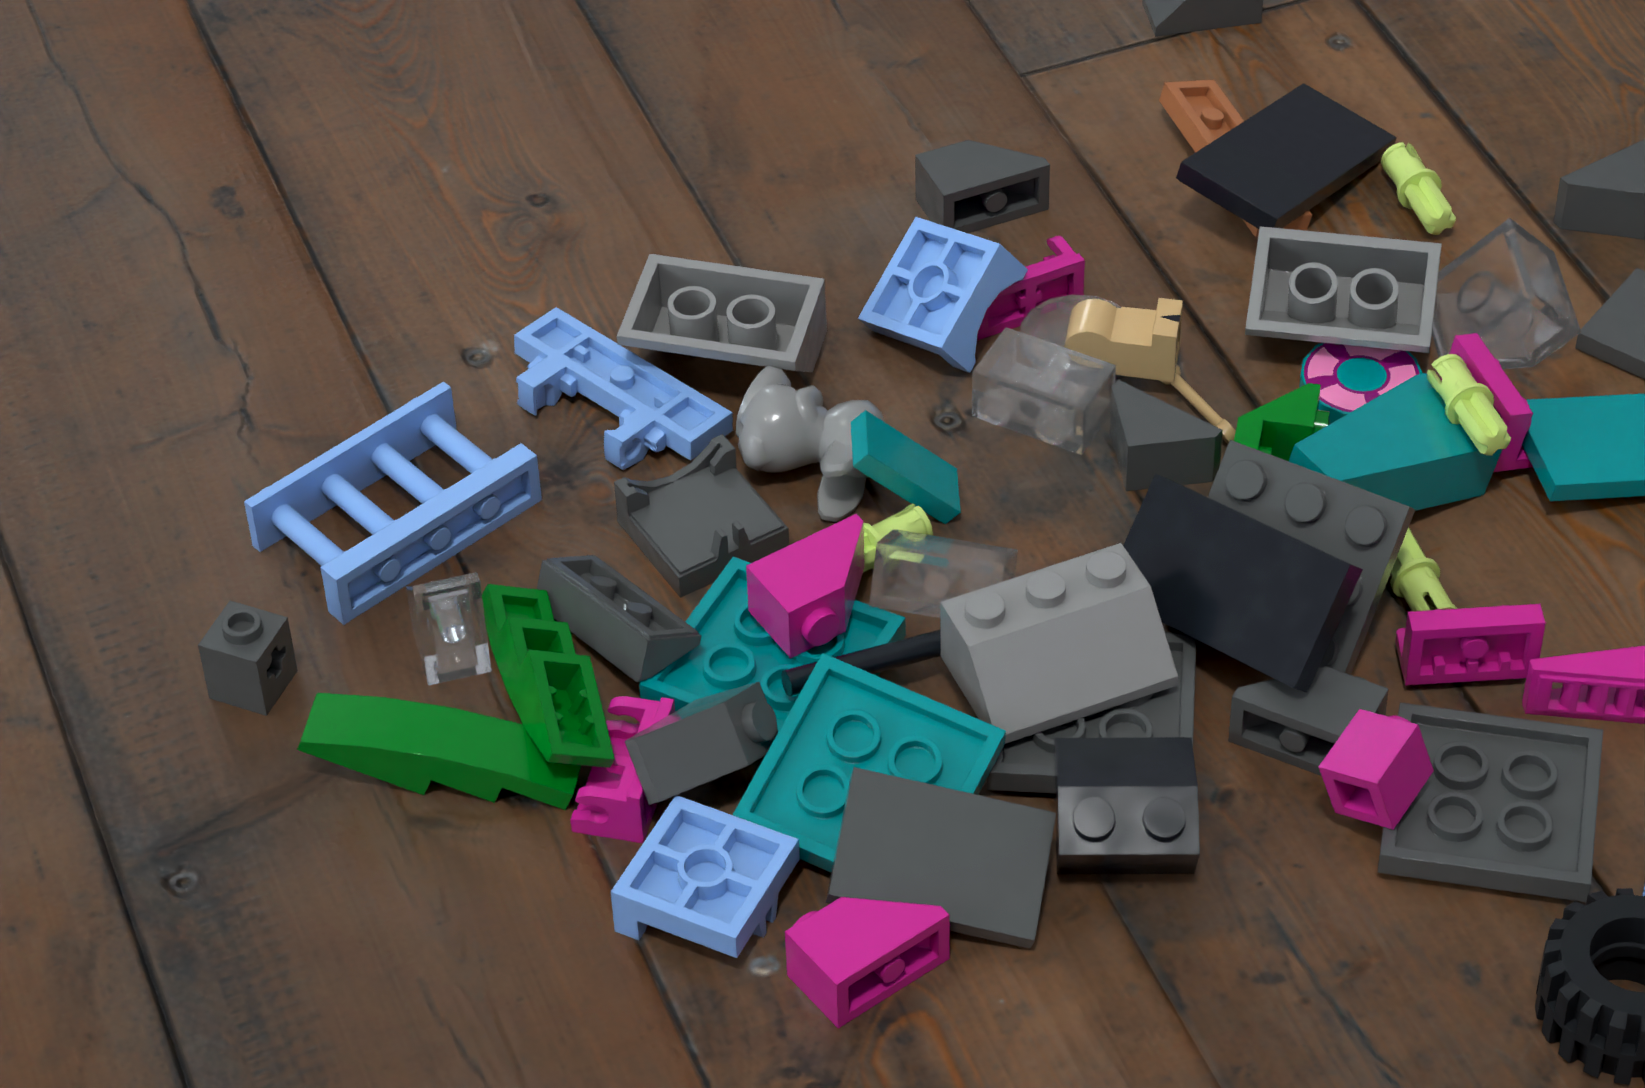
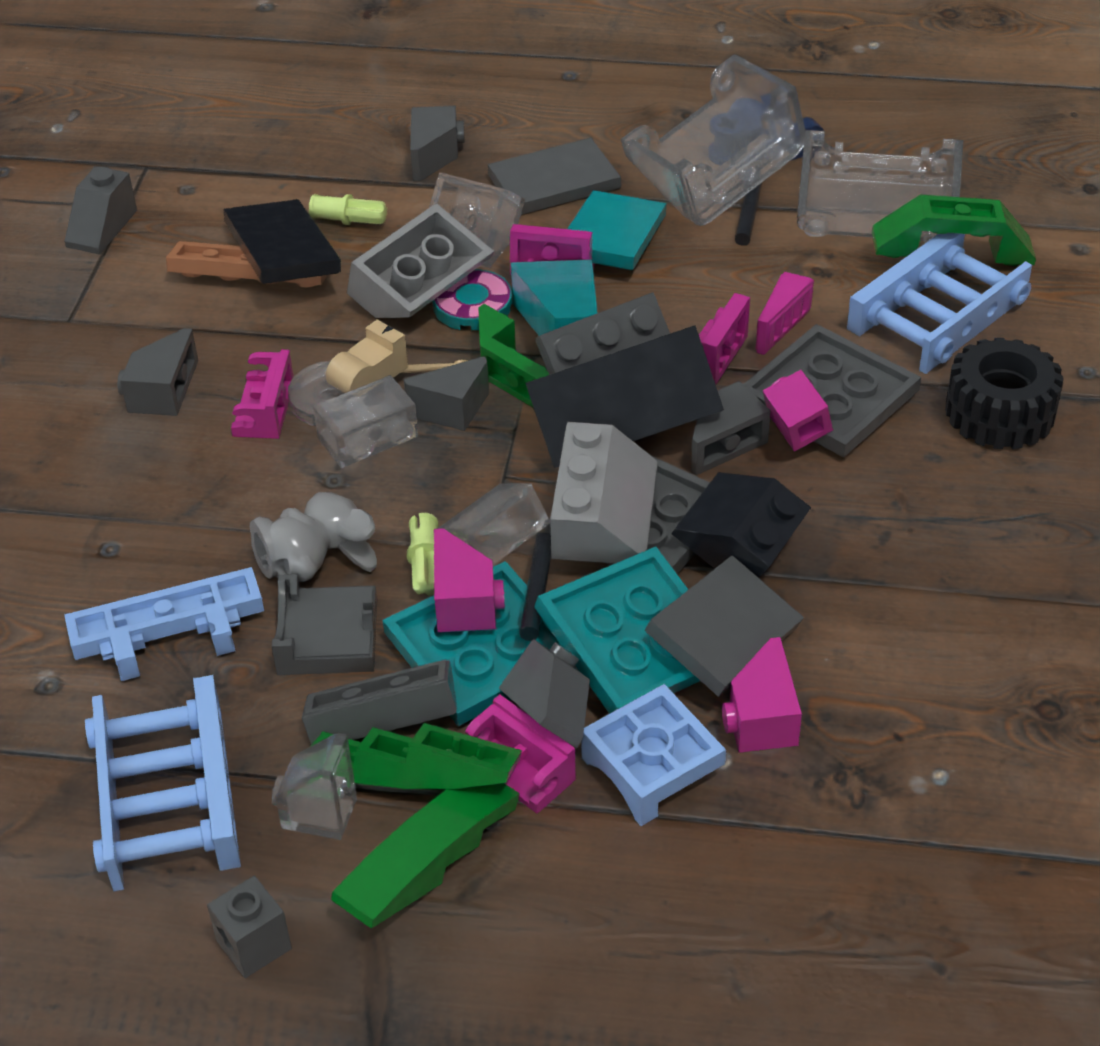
camera: 60 degrees left, 0 degrees up
(727, 313) = (173, 527): light grey slope -> none
(905, 467) = (383, 503): teal tile -> none
(940, 290) = (247, 422): light blue piece -> none
(1469, 404) = (564, 251): yellowish green axle -> none

